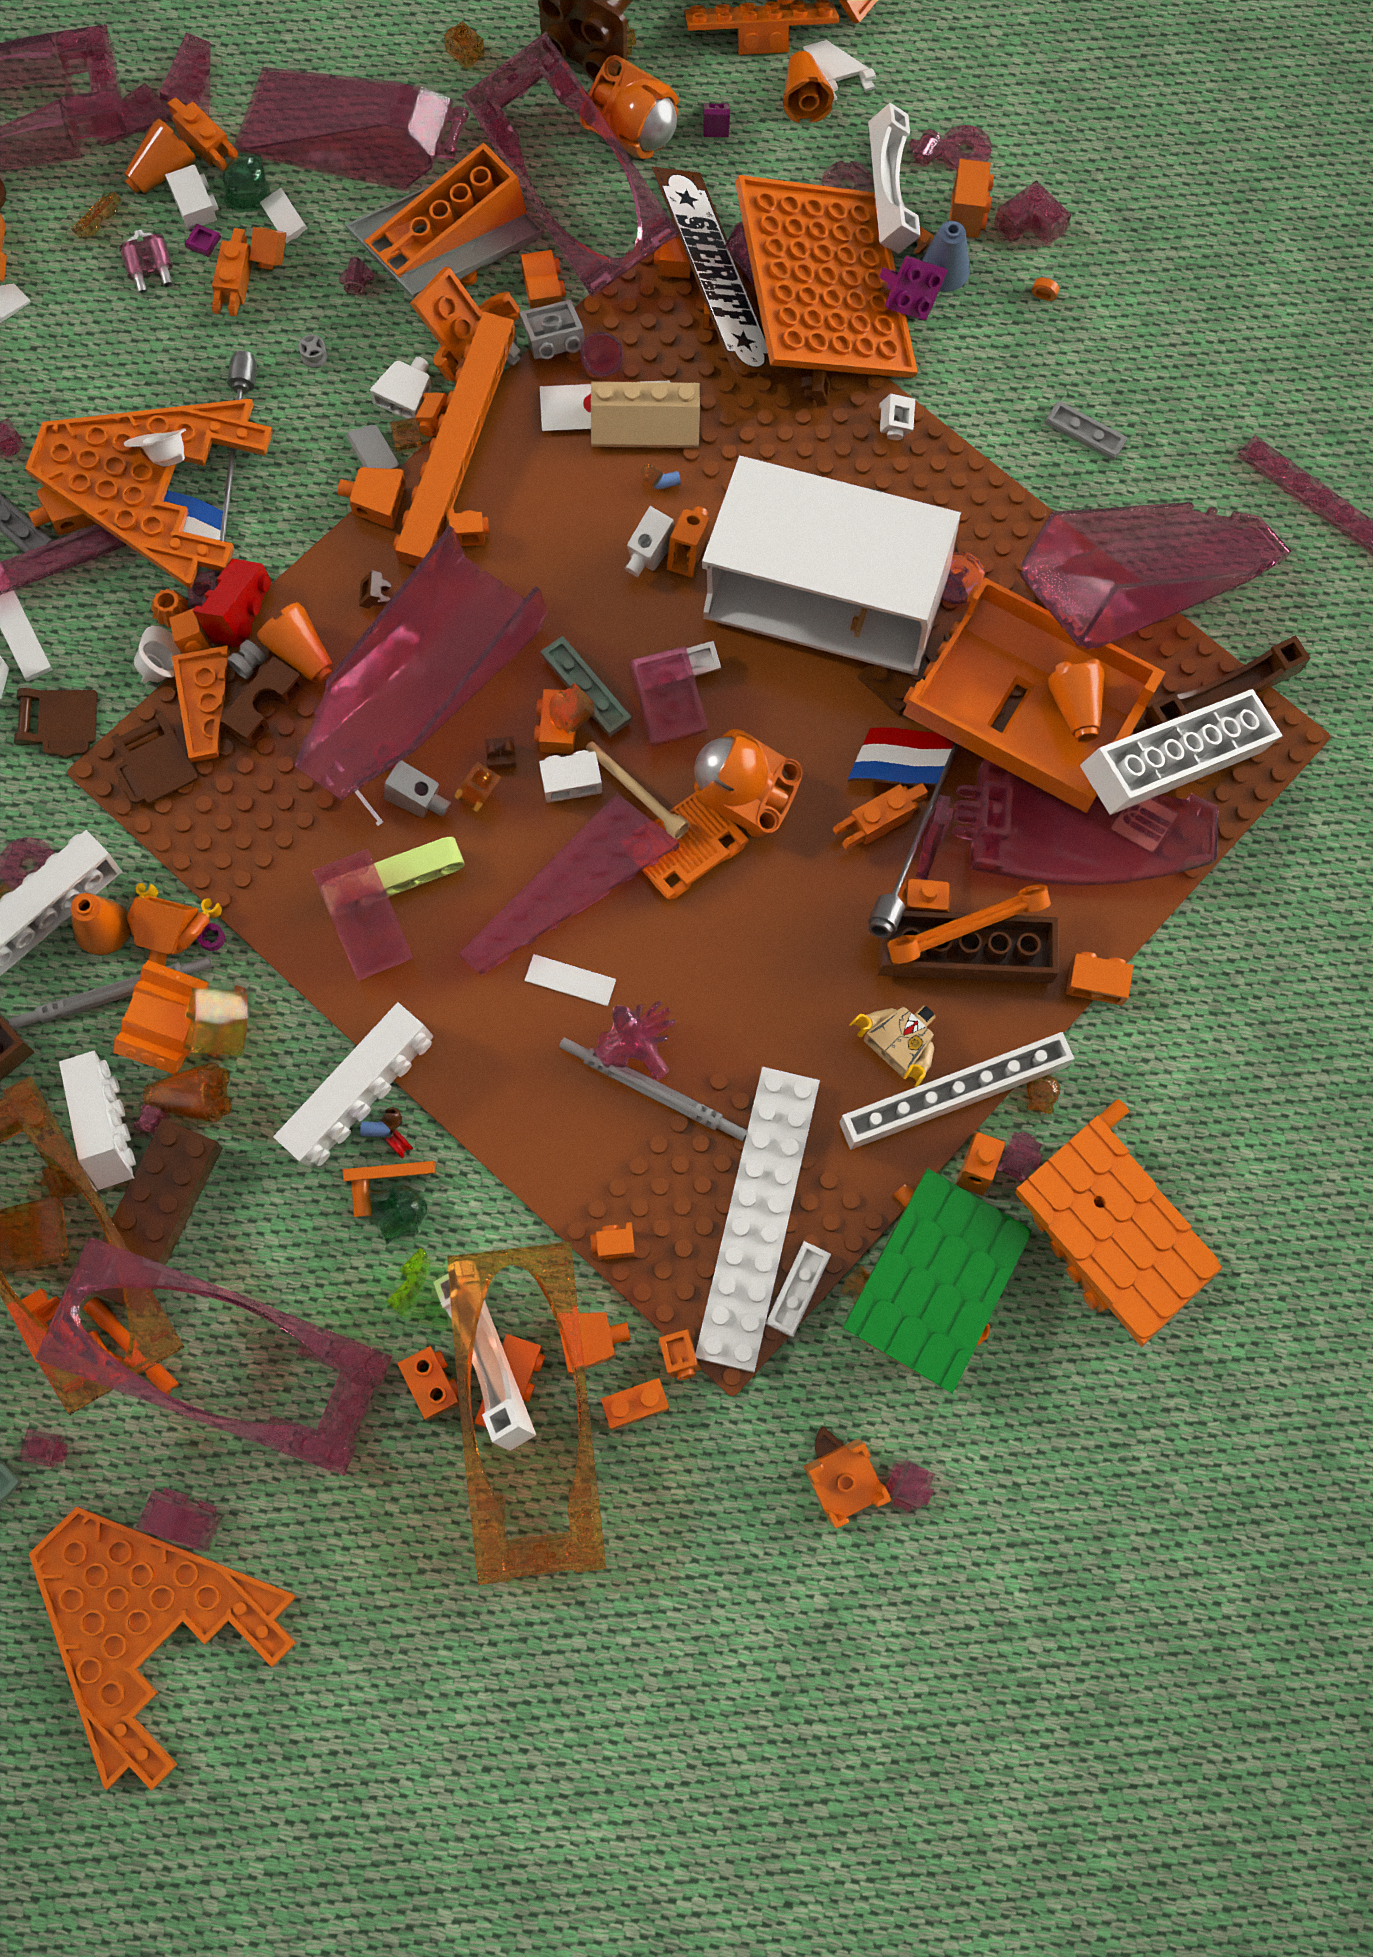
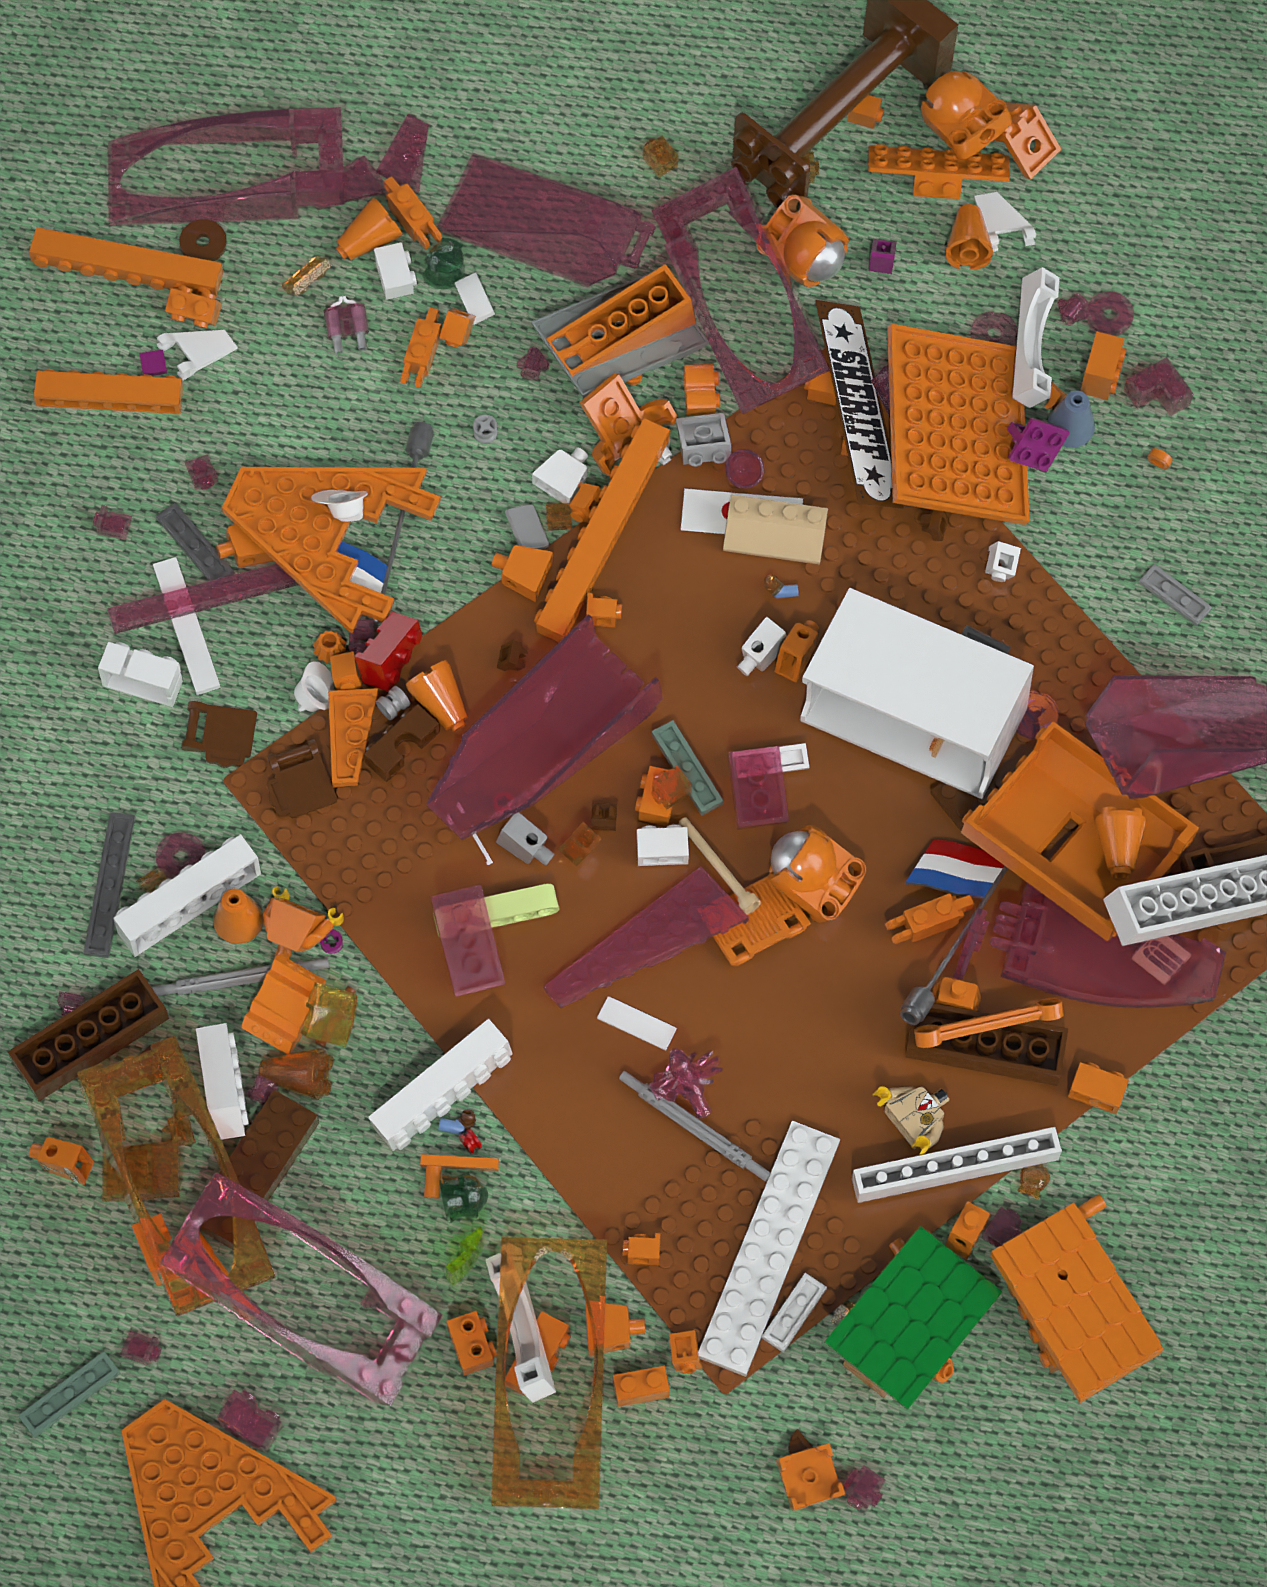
camera: 10 degrees right, 5 degrees down
(202, 240) = (398, 311): magenta tile -> none

